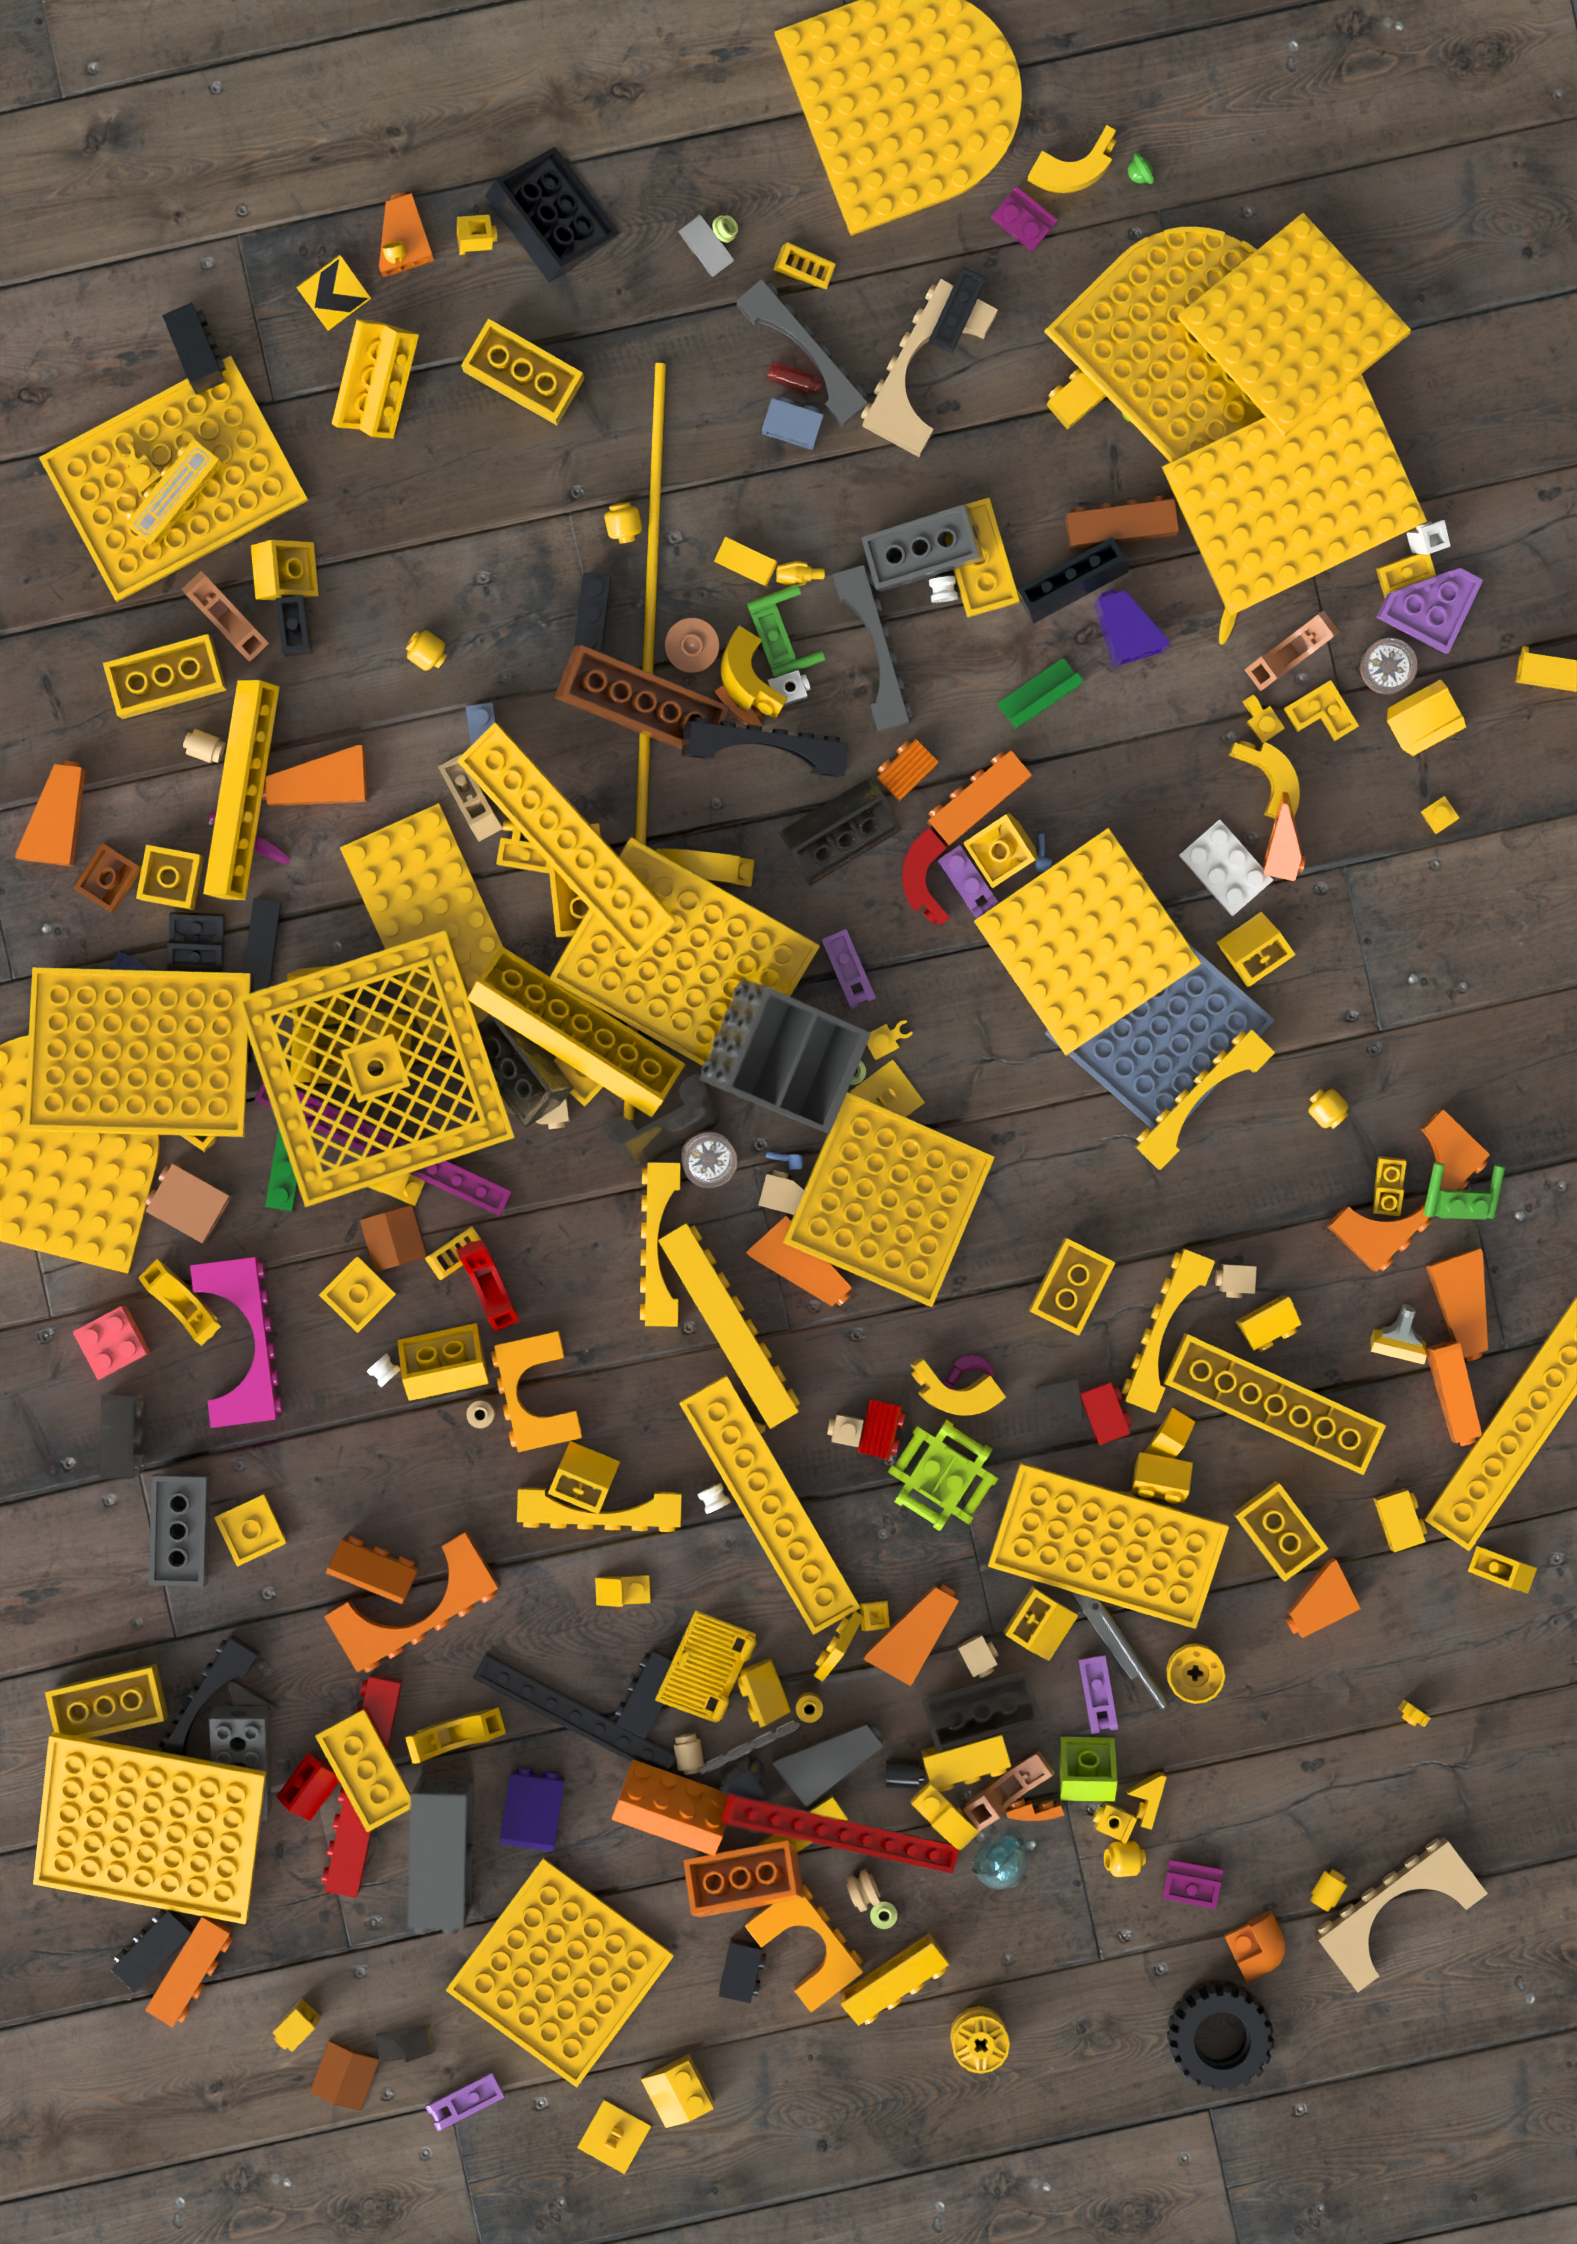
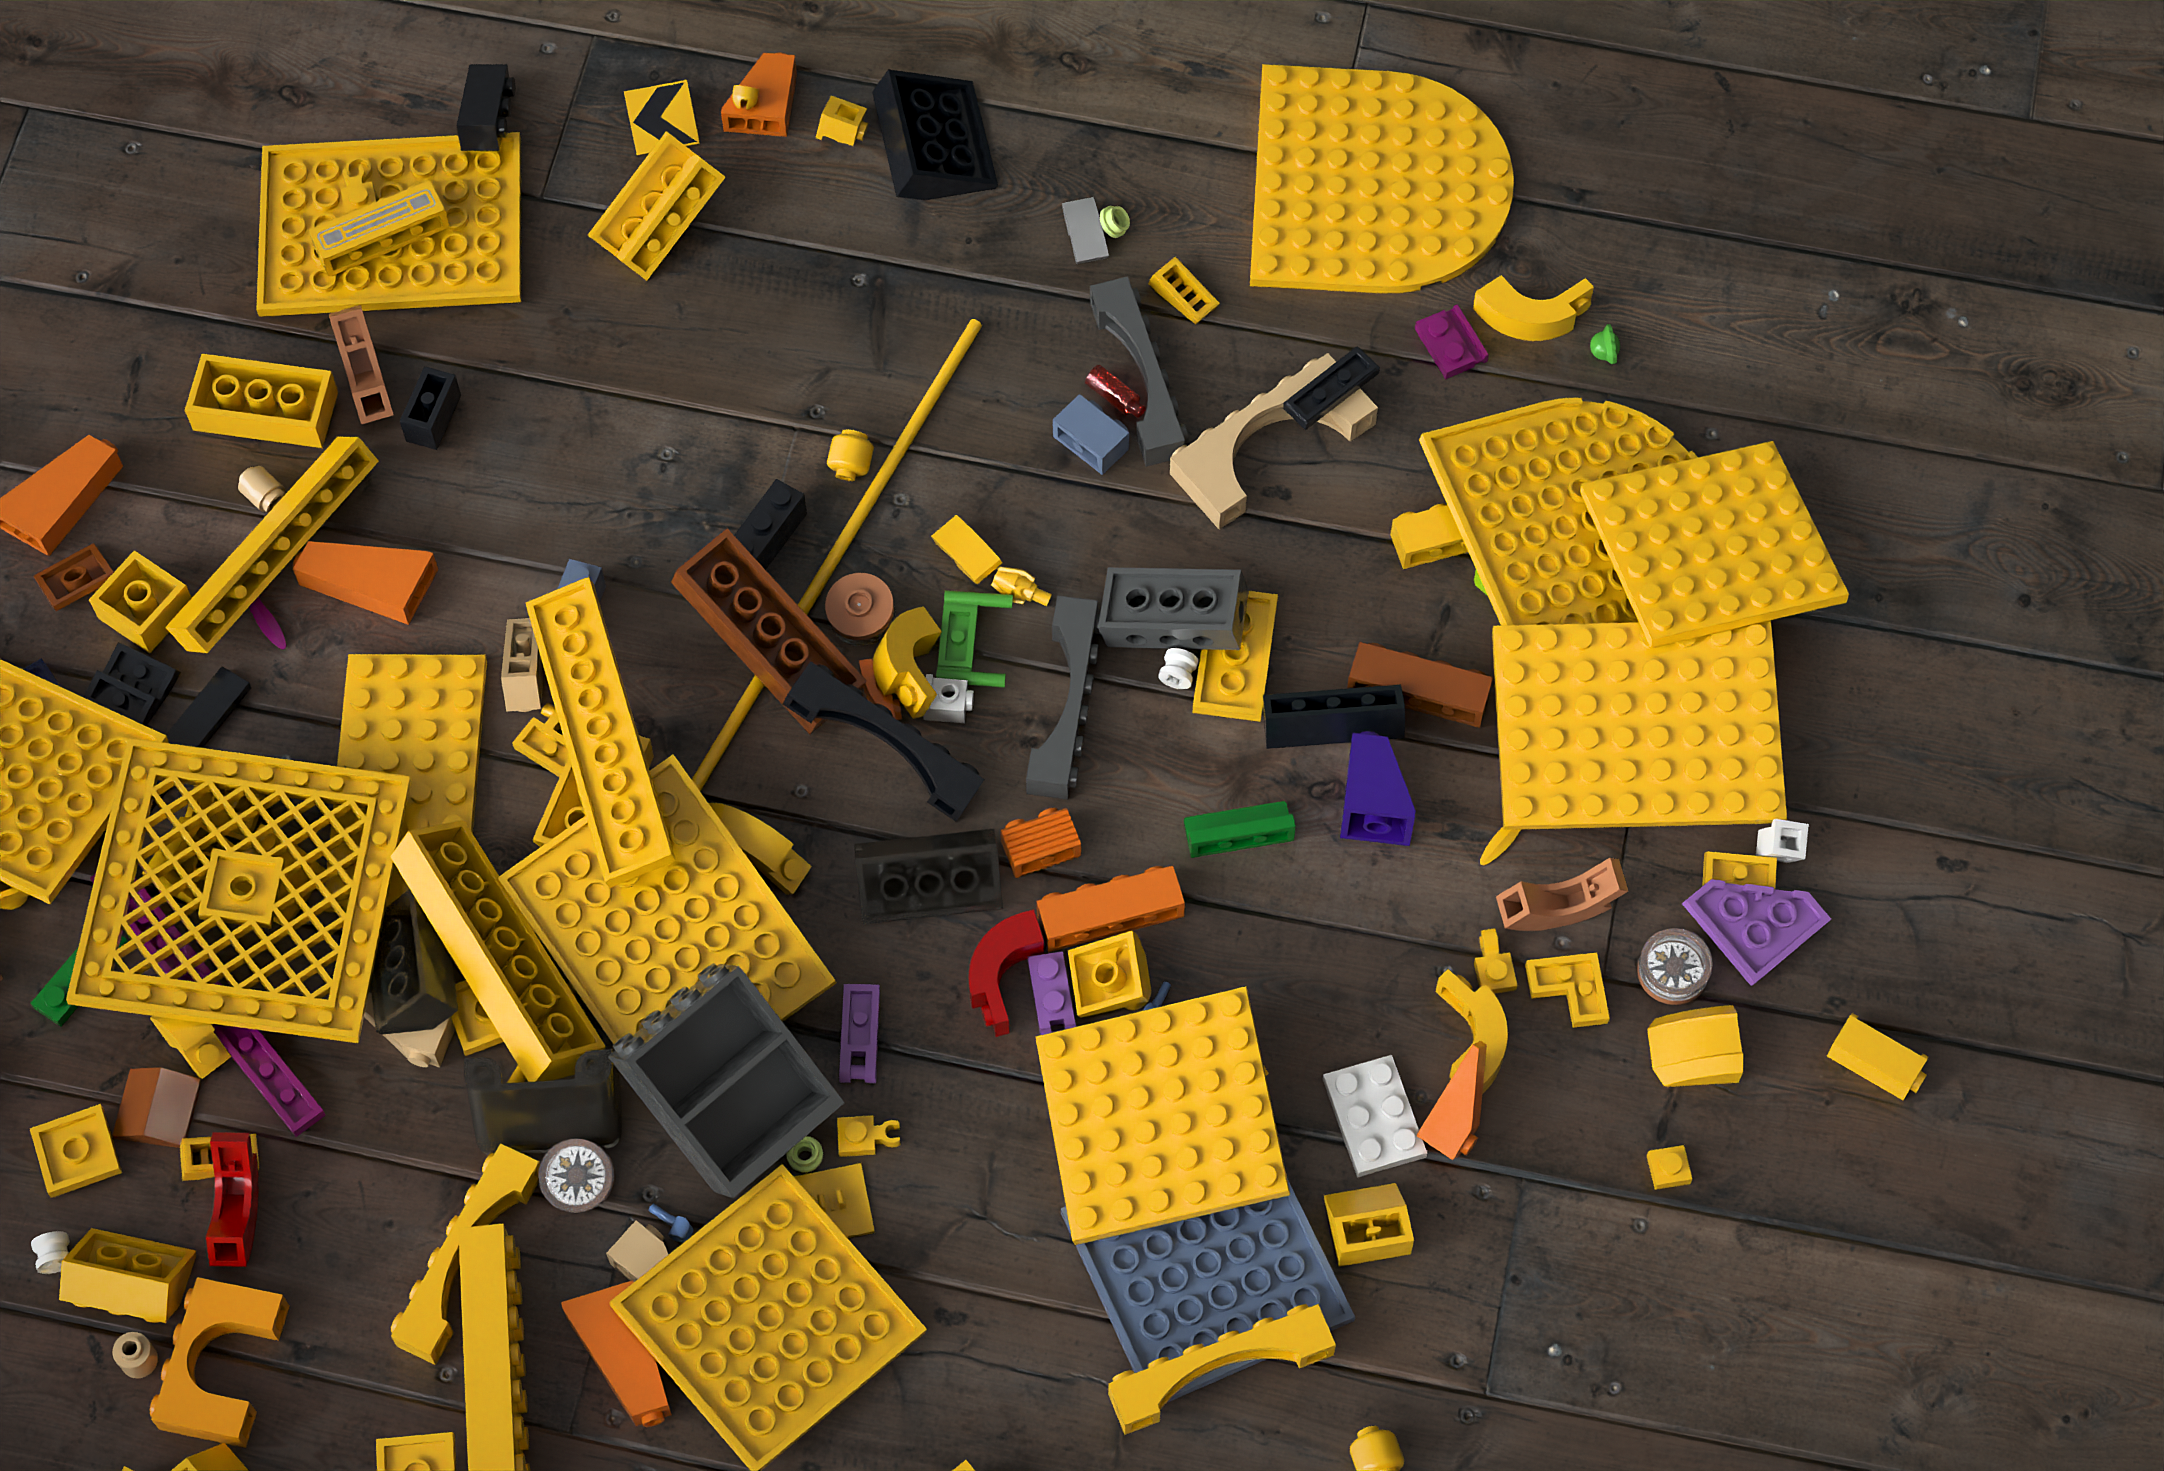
camera: 20 degrees right, 25 degrees down
(284, 569) = (456, 347): yellow slope -> none
(426, 650) = (560, 493): yellow head -> none
(522, 372) = (820, 265): yellow brick -> none

